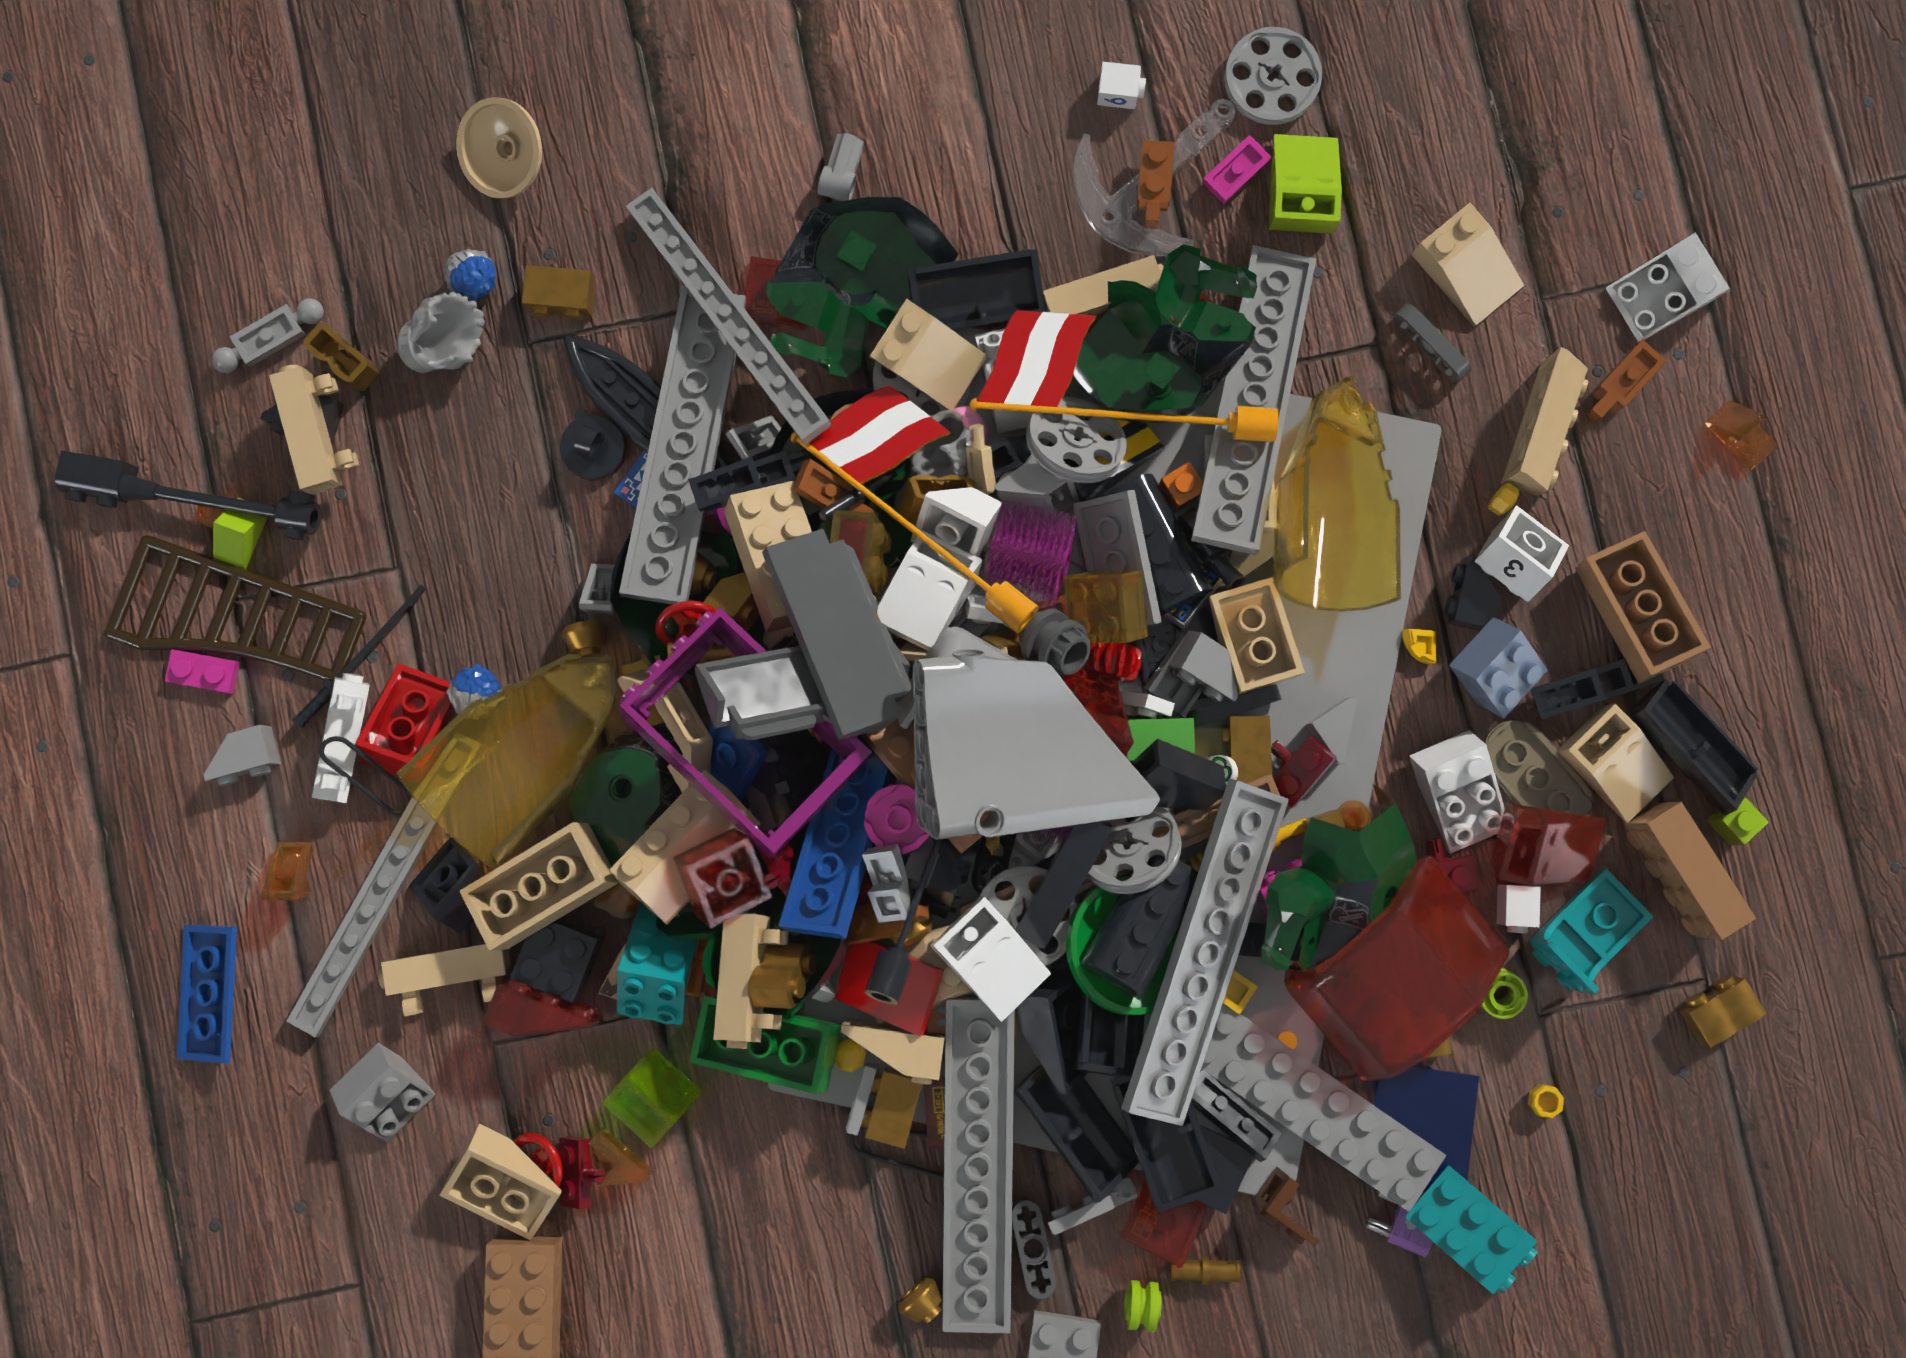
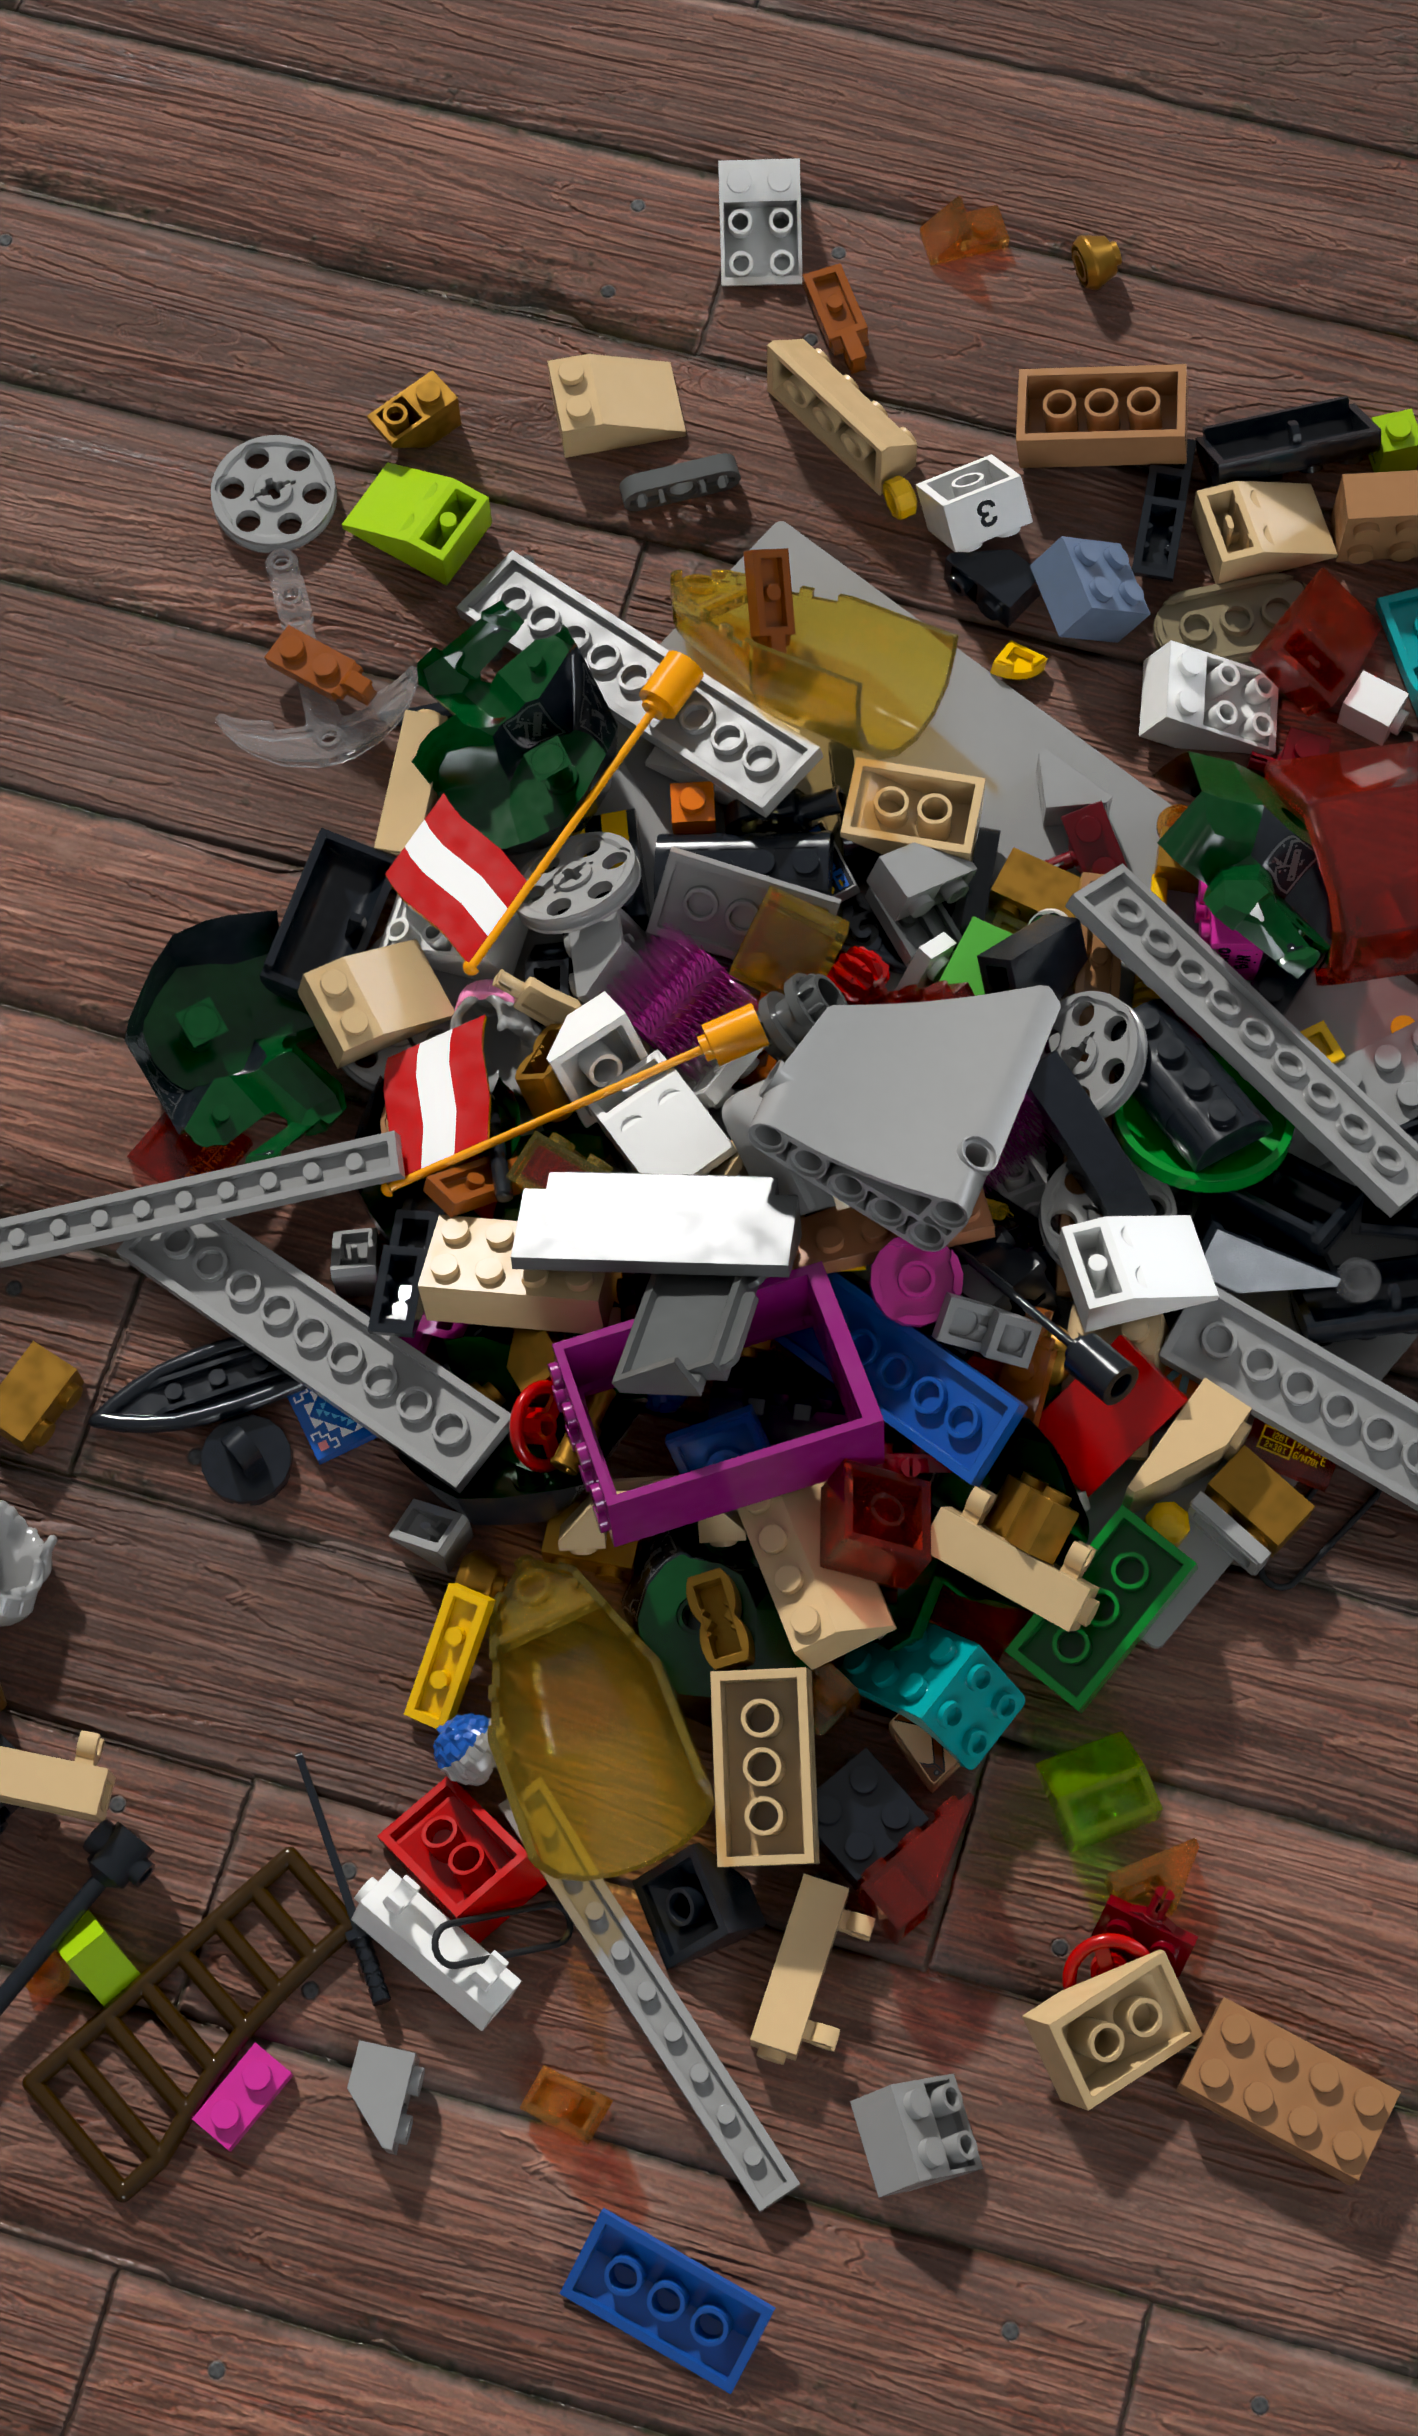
camera: 60 degrees left, 15 degrees down
(525, 646) = (449, 1655): none -> yellow plate
(618, 804) = (718, 1608): none -> pearl gold brick
(839, 176) = (94, 1008): light grey piece -> none
(1079, 1101) = (1359, 1280): none -> clear plate
(1120, 85) = (183, 653): white brick -> none
(1236, 169) = (358, 582): dark pink plate -> none
(1362, 456) = (769, 597): none -> dark orange hinge
(1381, 137) = (418, 414): none -> pearl gold slope
(1770, 537) = (1095, 260): none -> pearl gold cone

